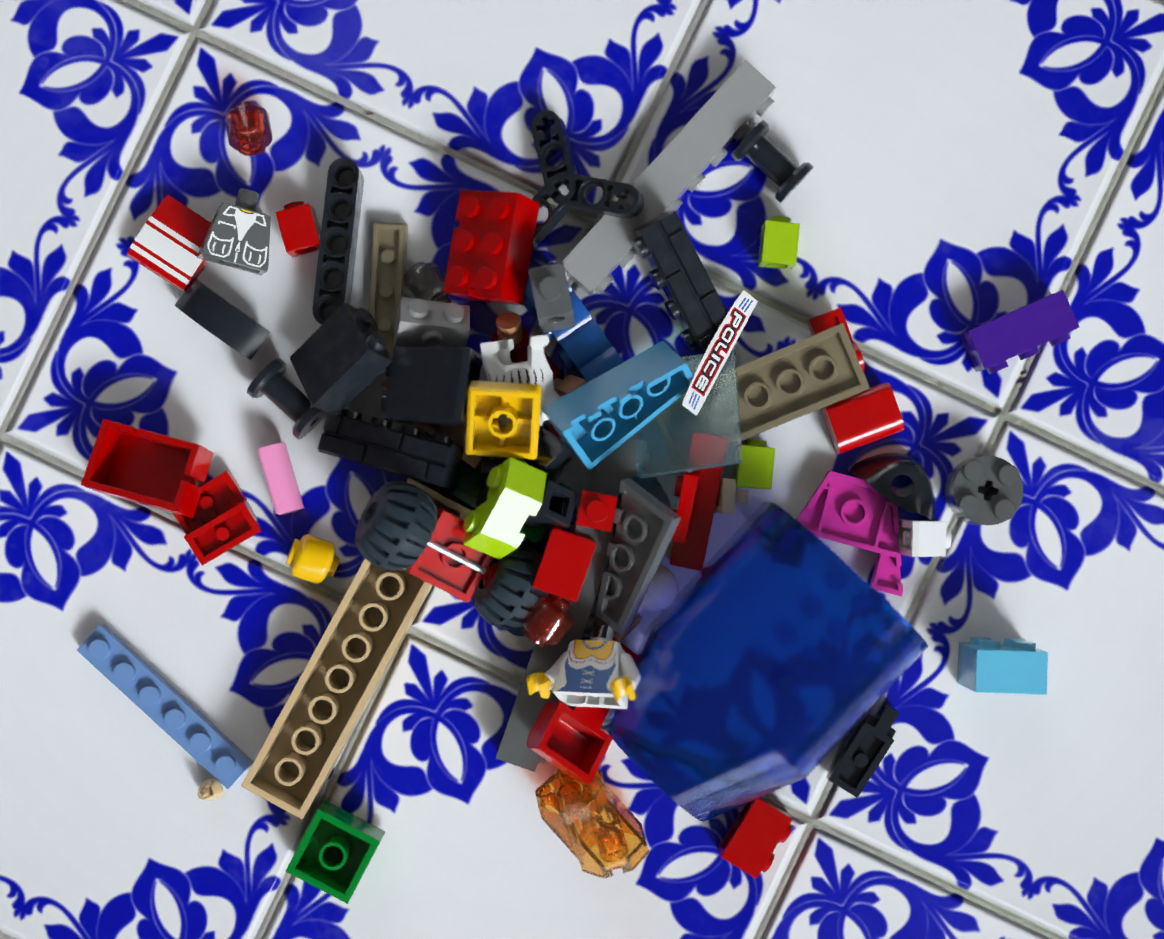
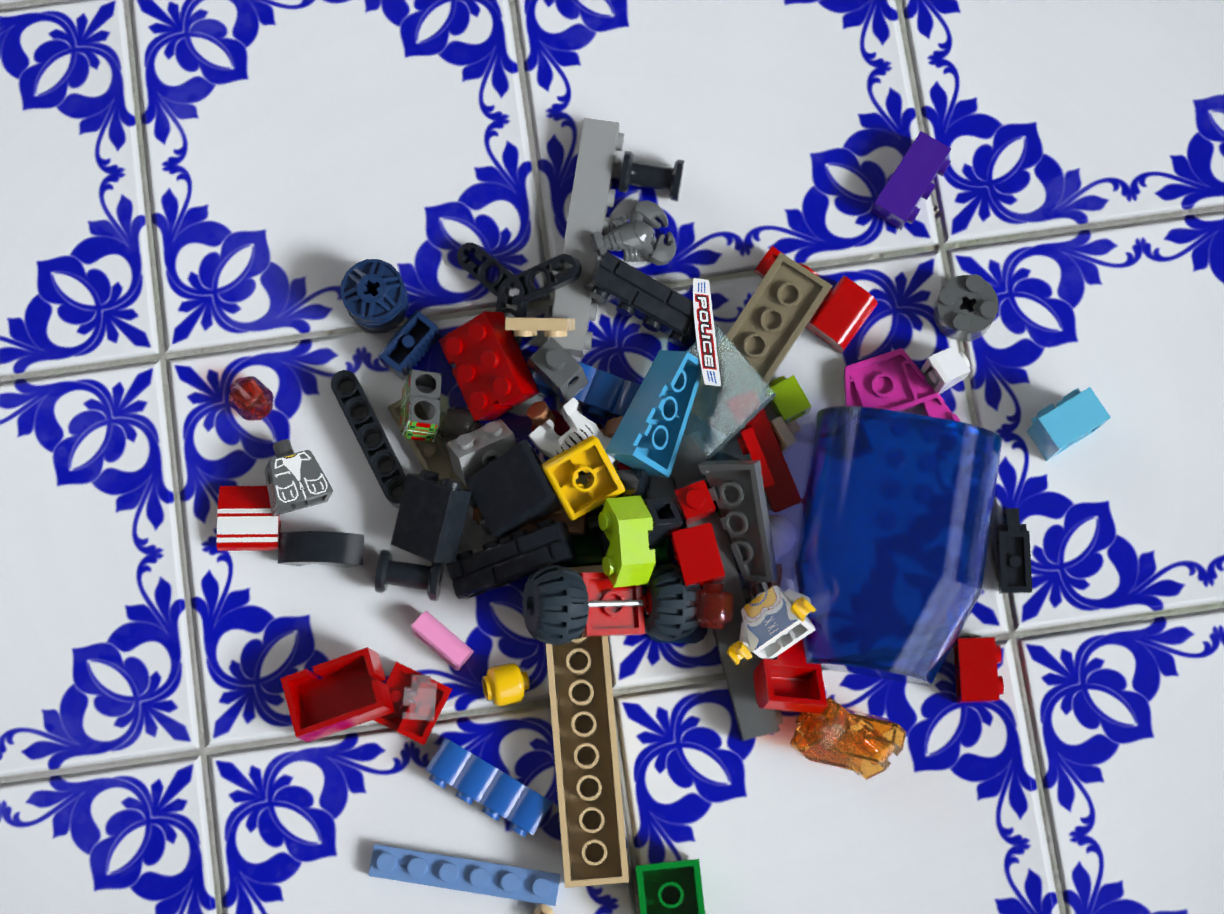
camera: 30 degrees left, 10 degrees down
(221, 524) = (420, 698): none -> clear brick
(237, 642) = (489, 786): none -> blue brick
(299, 228) = (336, 446): red brick -> none
(378, 255) = (410, 425): none -> piece
(430, 176) = (409, 345): none -> dark blue brick
(445, 114) = (385, 309): none -> dark blue wheel
(572, 249) = (529, 326): none -> tan plate
(719, 212) = (638, 235): none -> dark grey animal
(779, 243) = (696, 230): lime brick -> none
(884, 467) = (883, 342): black piece -> none

